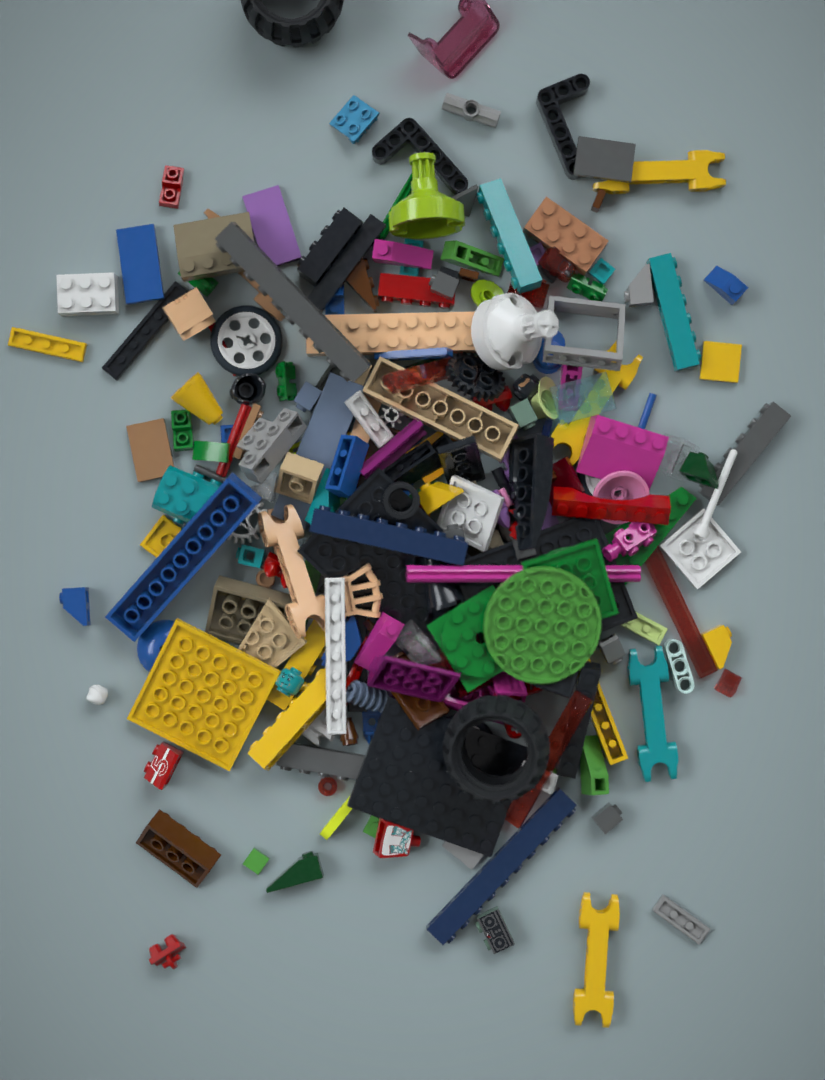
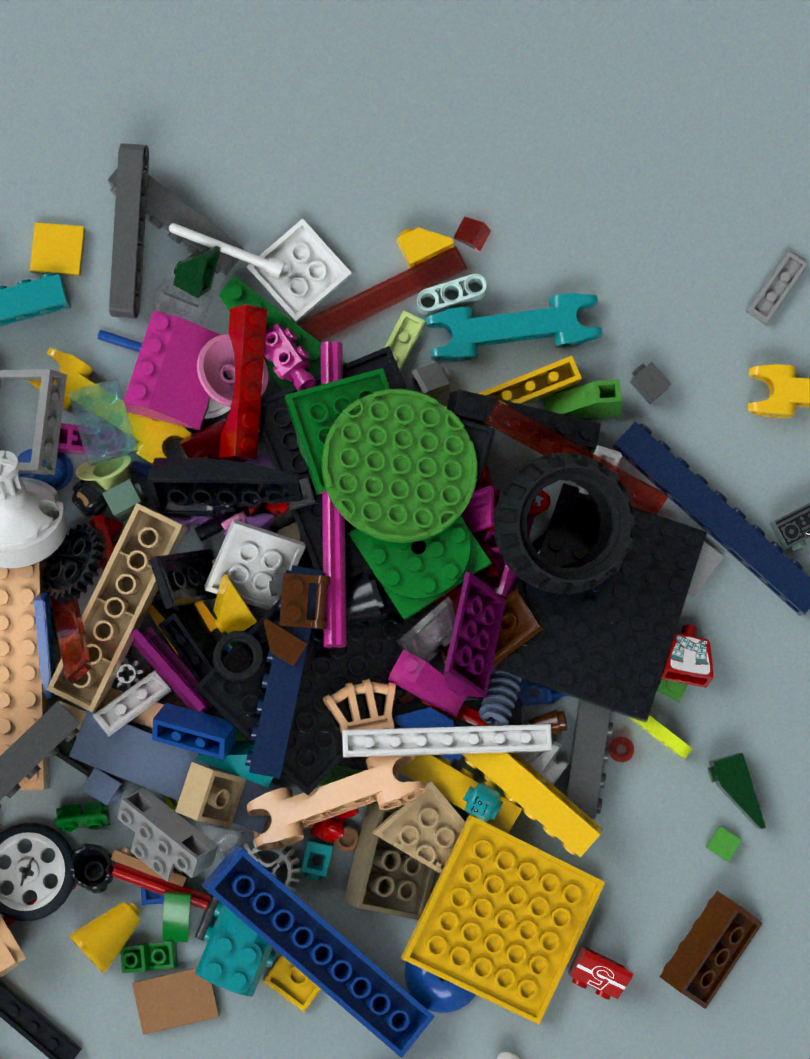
camera: 95 degrees left, 5 degrees down
(408, 535) = (283, 643): none -> reddish brown tile
(440, 544) = (295, 600): none -> reddish brown plate
(732, 418) = (129, 230): none -> dark grey beam

